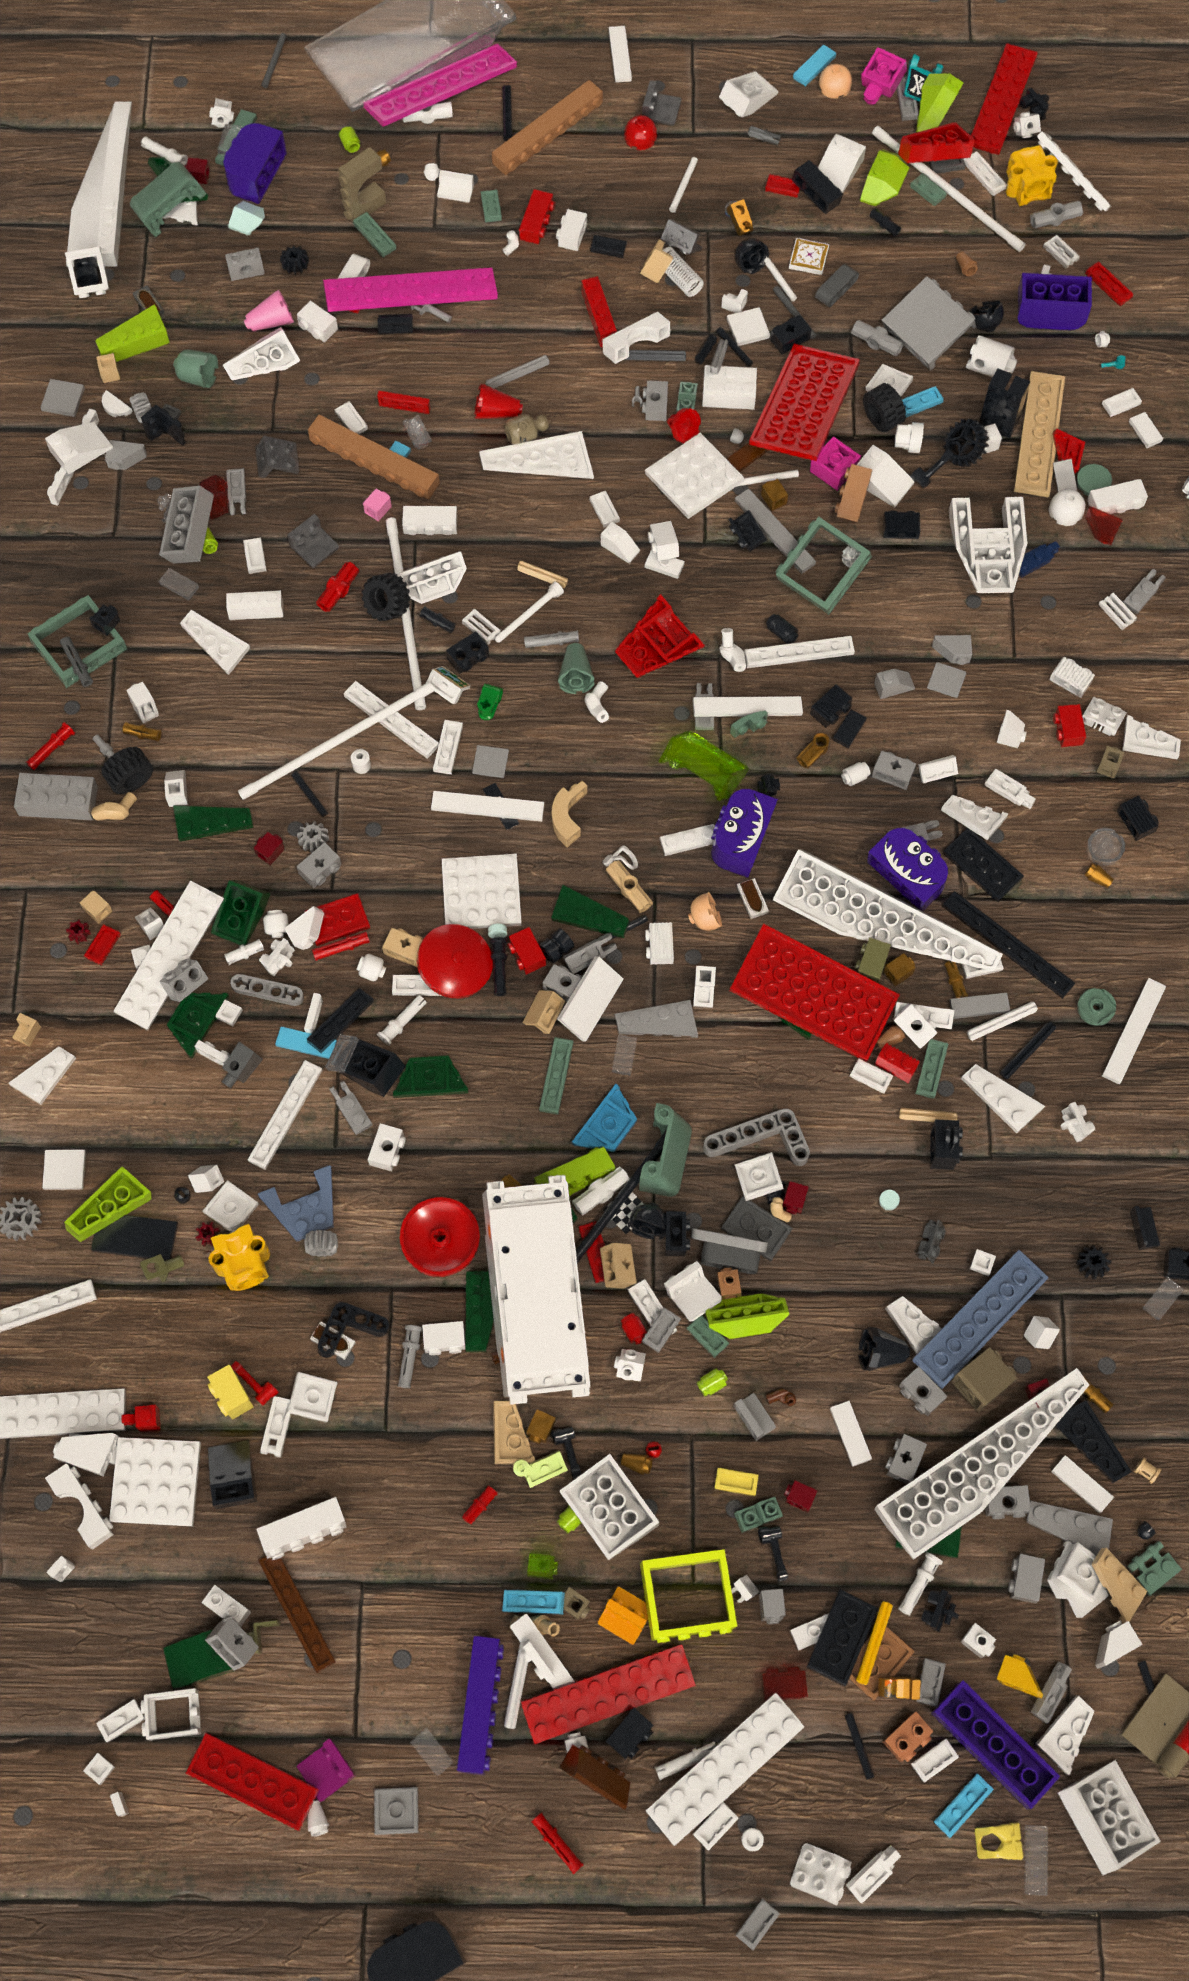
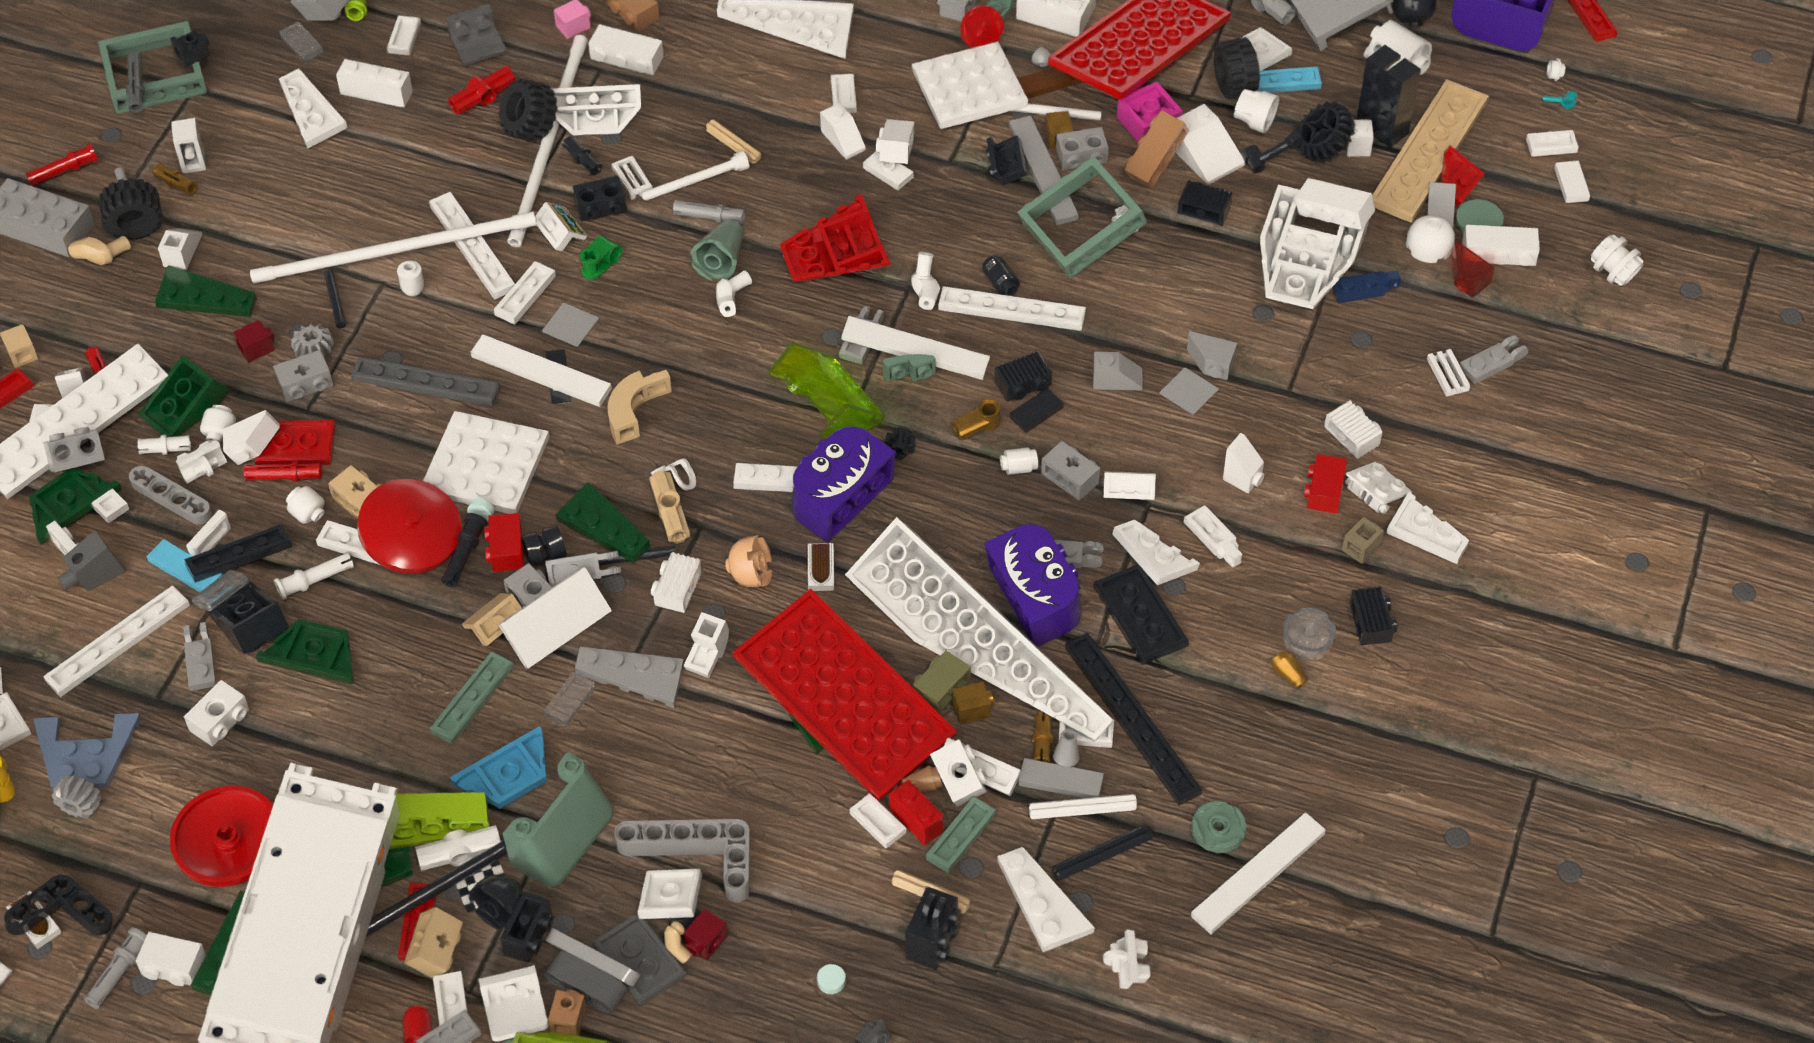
camera: 20 degrees right, 15 degrees down
(408, 841) = (425, 381): none -> dark grey tile
(795, 503) = (1080, 146): none -> light grey brick
(977, 985) = (1067, 750): none -> light grey cone
(999, 504) = (1334, 203): none -> white brick

